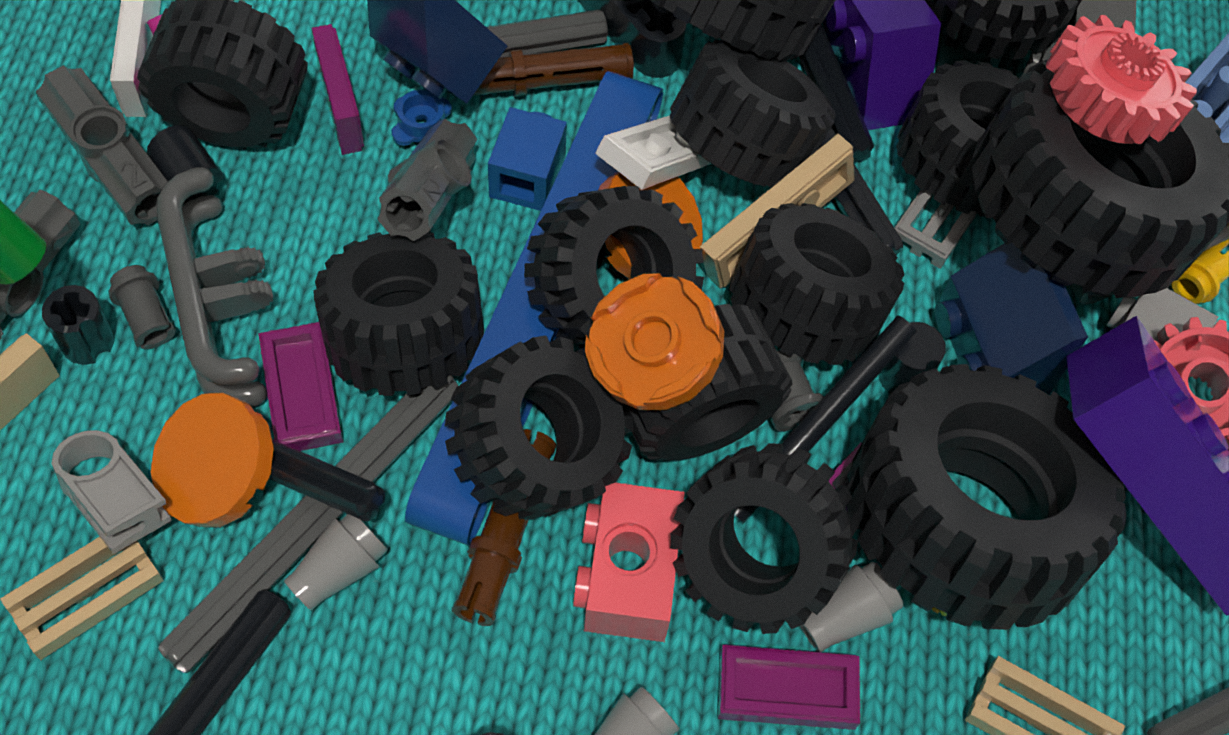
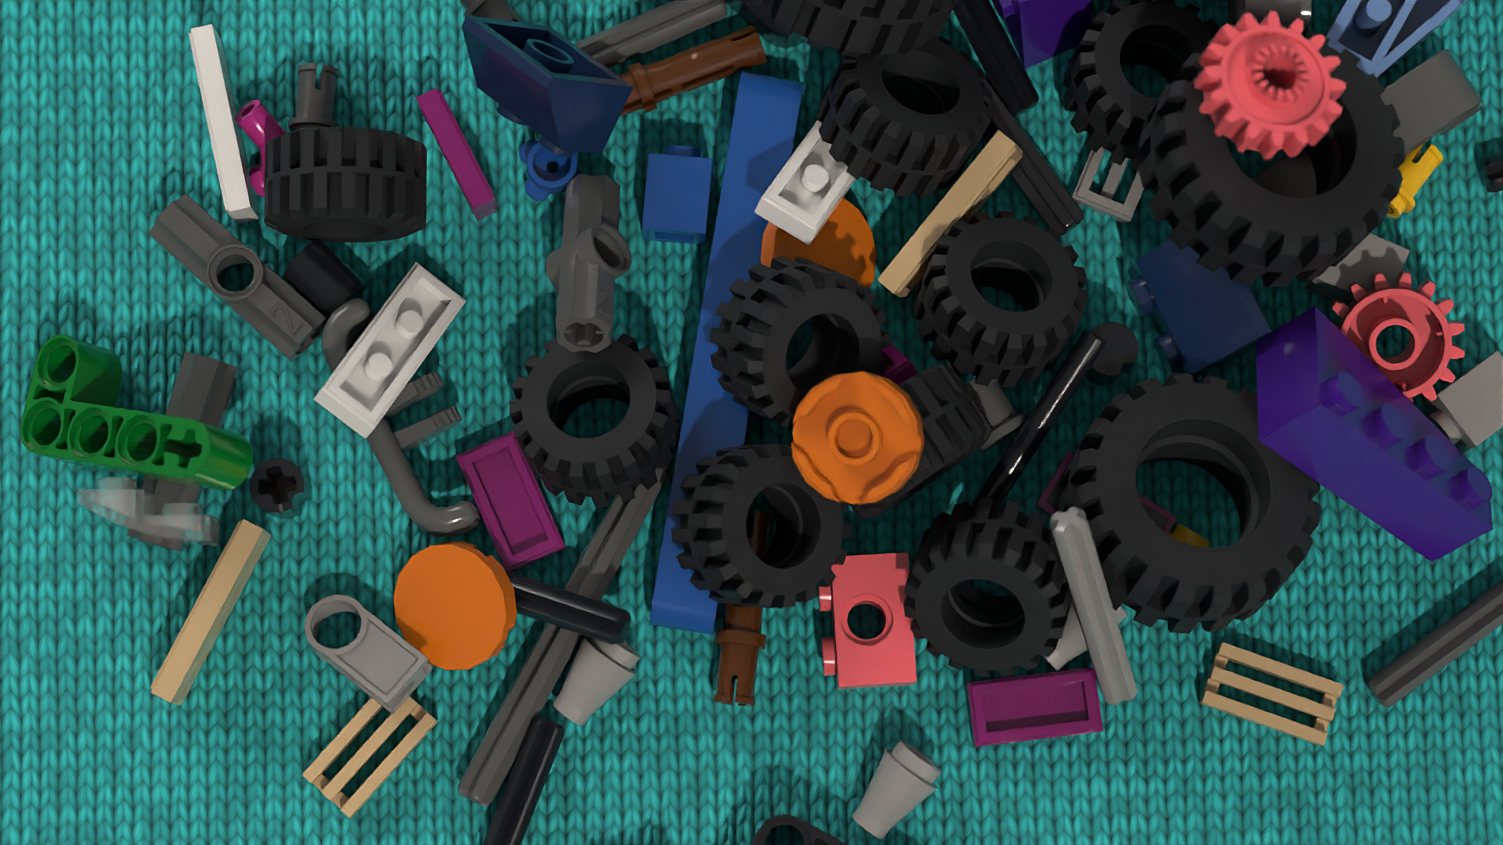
camera: 10 degrees left, 20 degrees up
(137, 296) = (332, 450): dark grey pin -> none
(217, 217) = (390, 350): none -> white tile
(873, 568) = (1093, 605): none -> light grey axle

